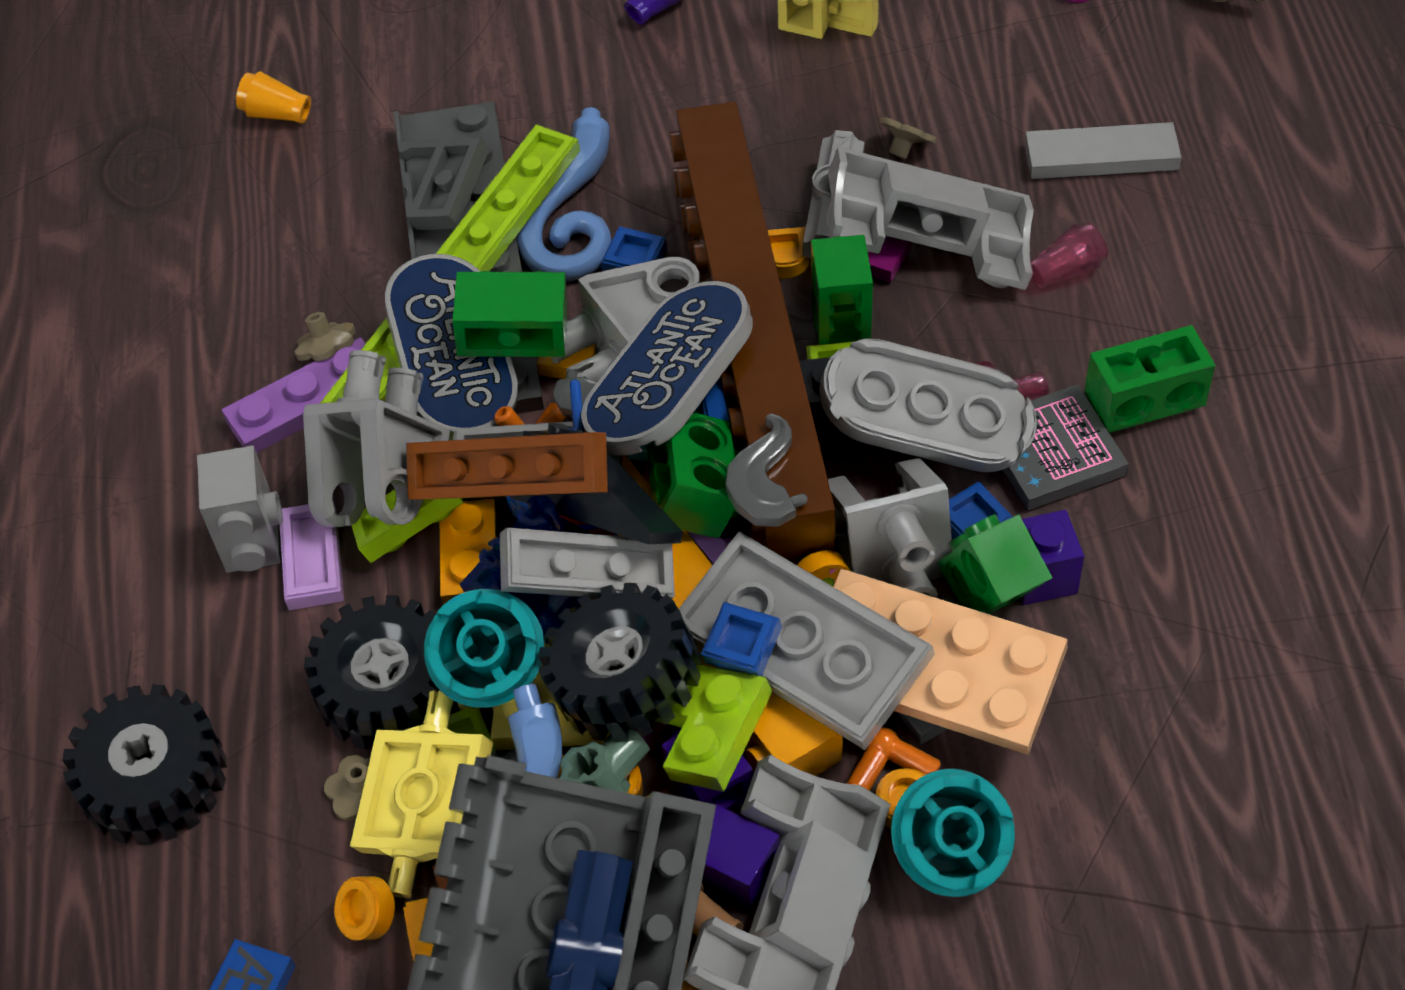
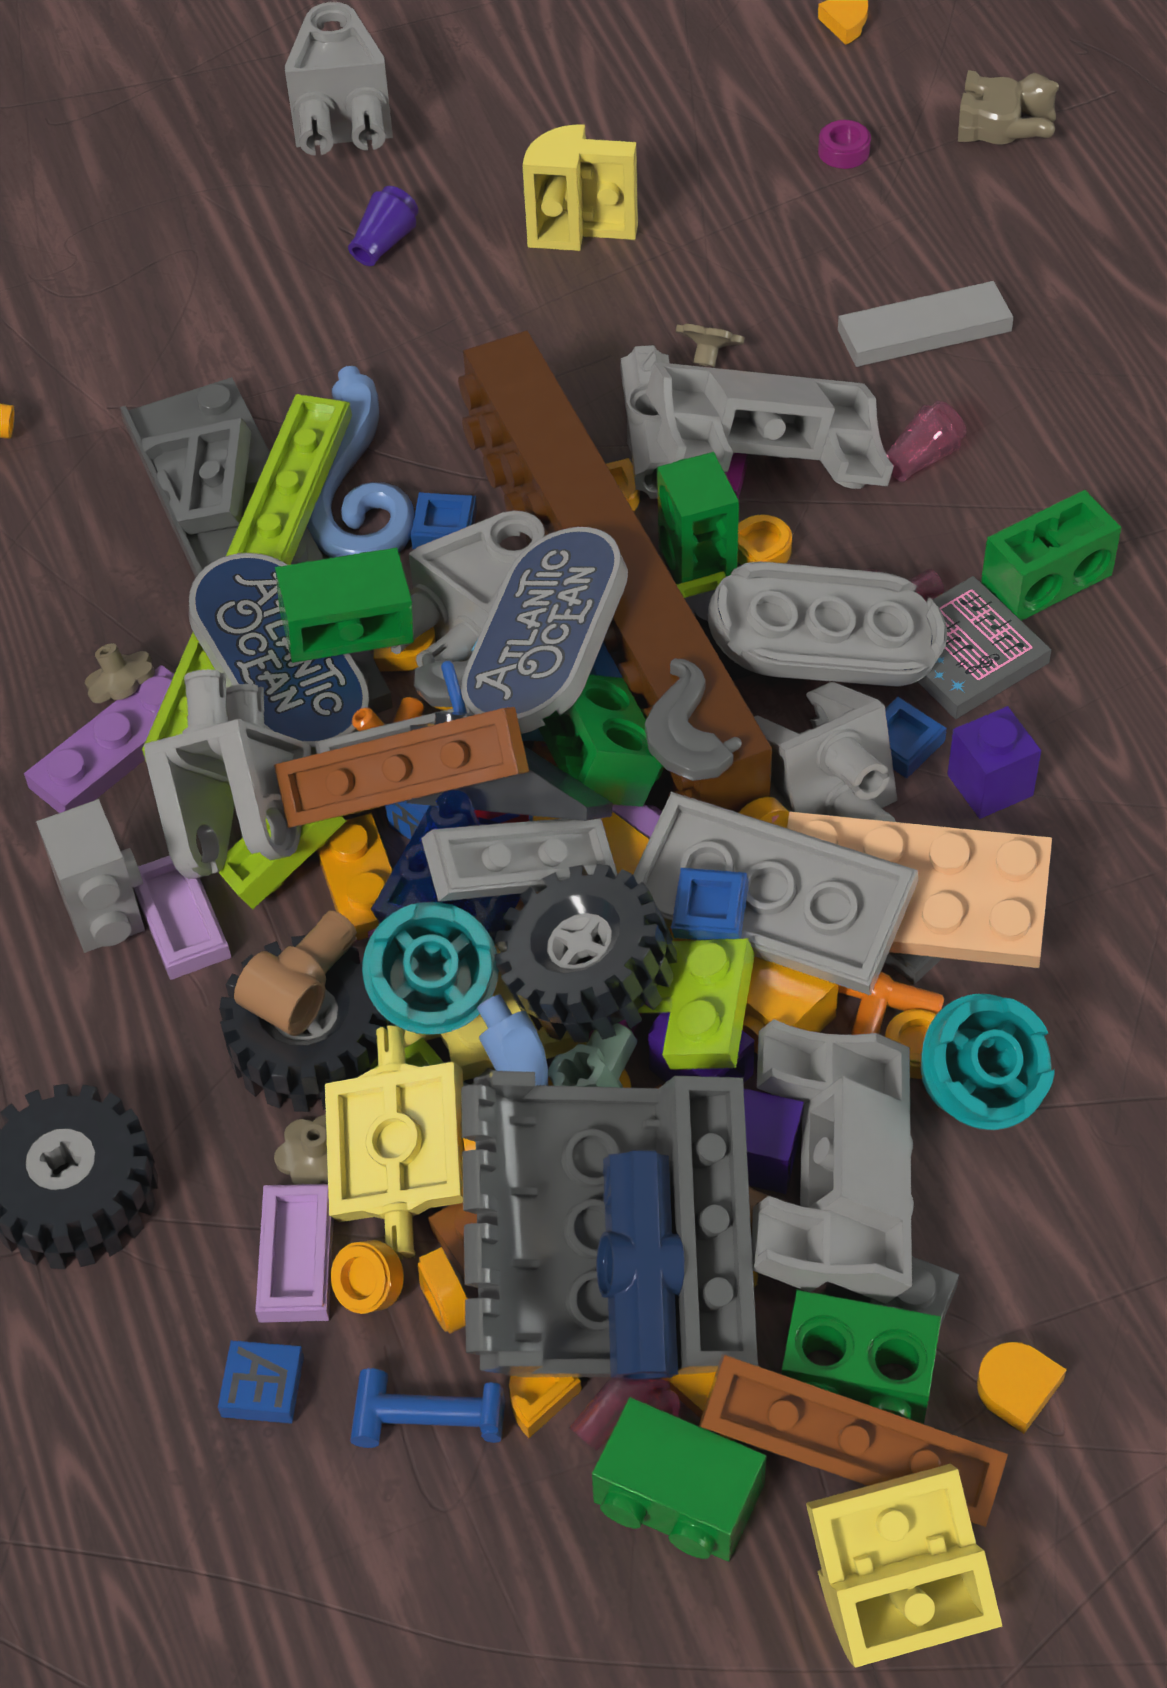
camera: 15 degrees left, 0 degrees up
(313, 874) = (295, 1254): none -> lavender tile
(367, 639) = (291, 986): none -> medium nougat pin
(900, 320) = (764, 540): none -> light orange tile
(993, 564) = (949, 776): green brick -> none

